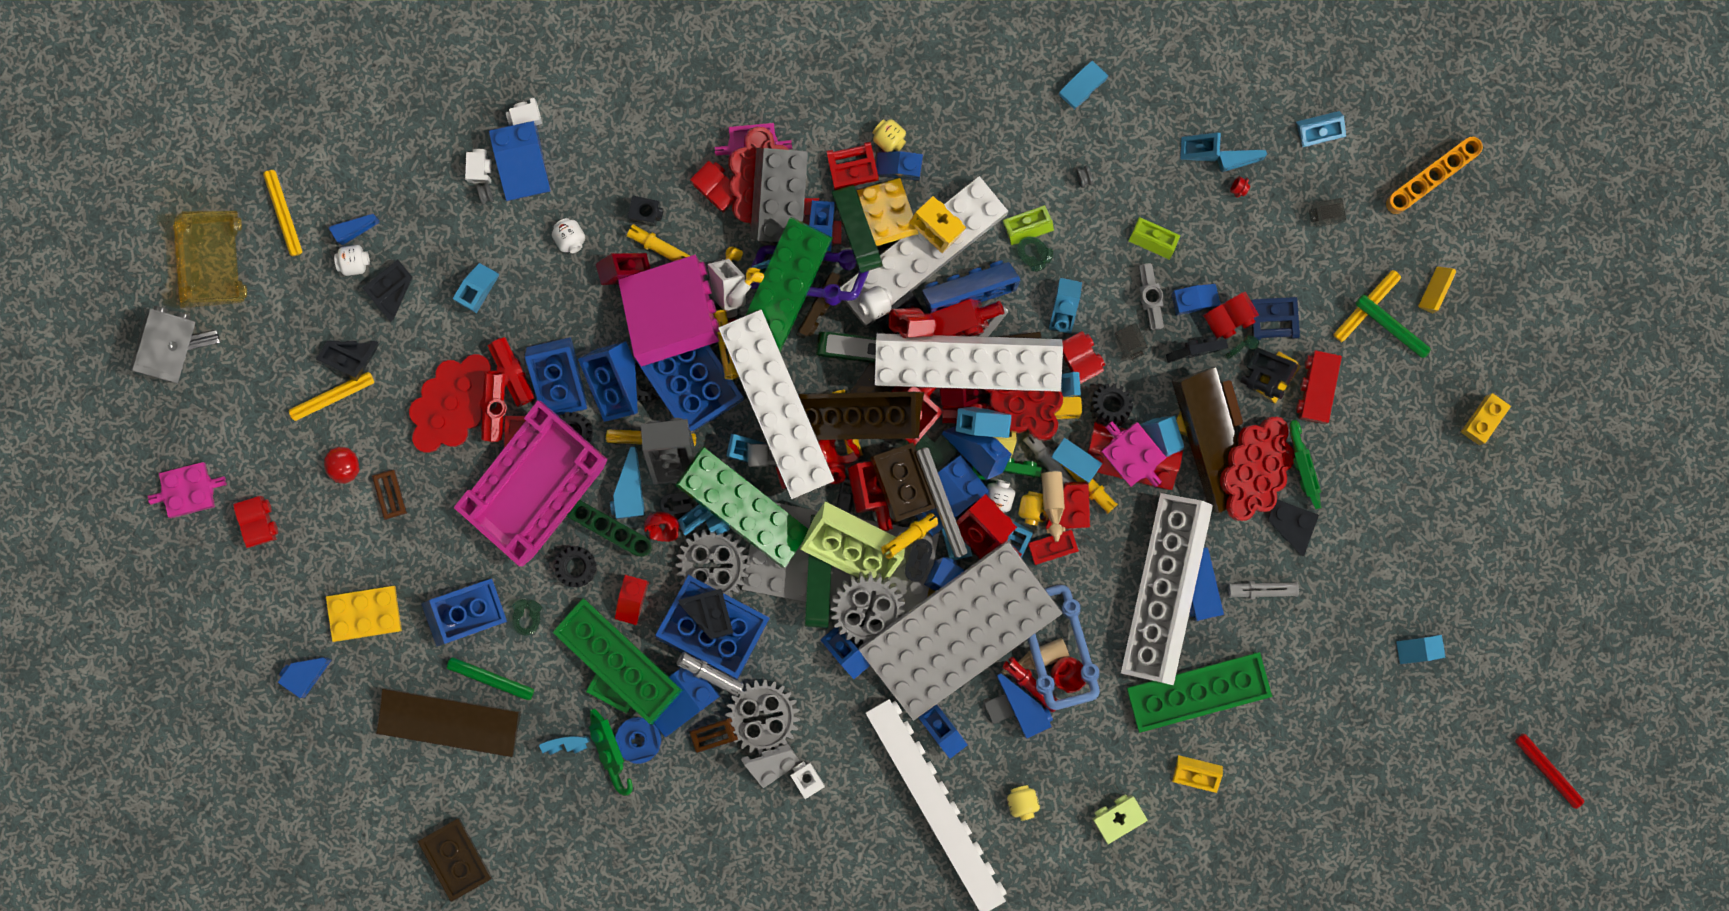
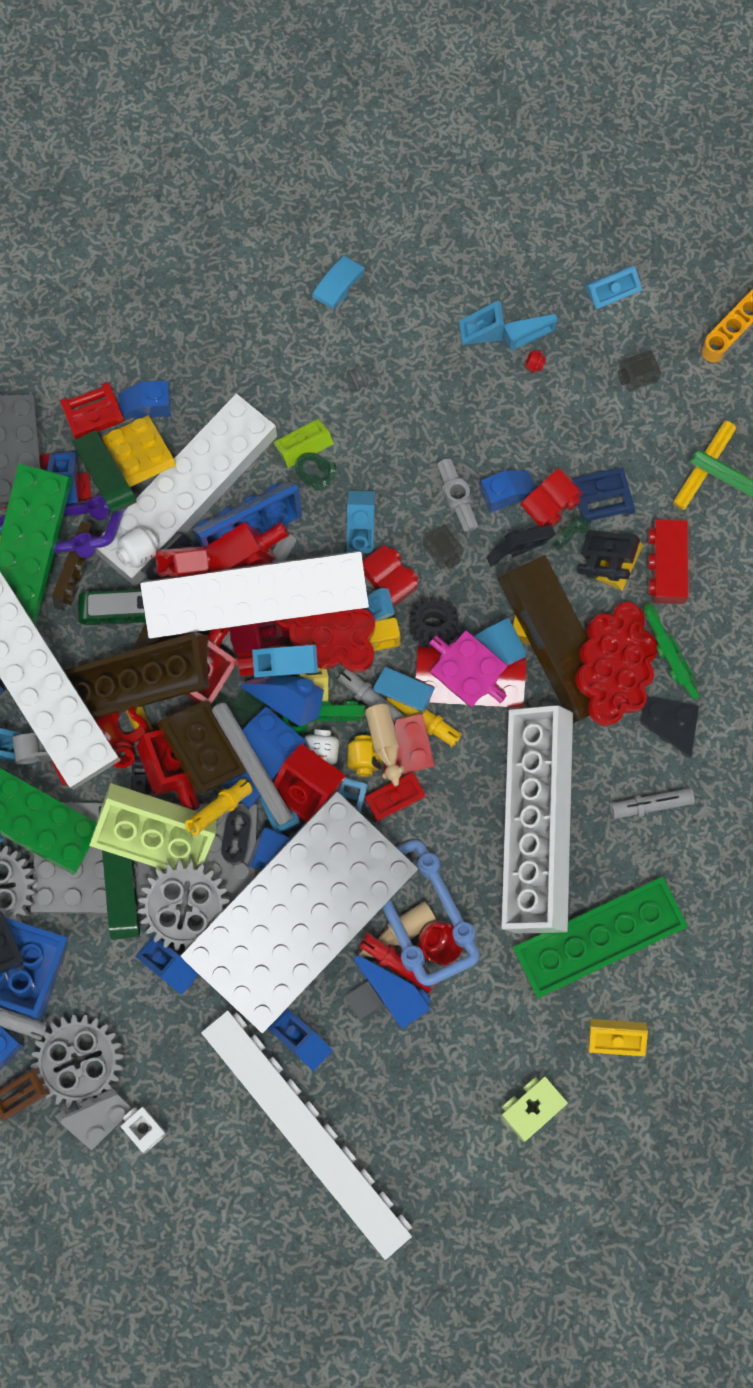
camera: 10 degrees left, 10 degrees down
(889, 136) = (128, 370): light yellow head -> none
(937, 224) = (194, 448): yellow brick -> none
(1023, 802) = (412, 1110): light yellow head -> none
(1154, 238) = (448, 433): lime slope -> none
(1206, 597) = (586, 823): blue slope -> none
(1232, 403) = (573, 596): reddish brown tile -> none

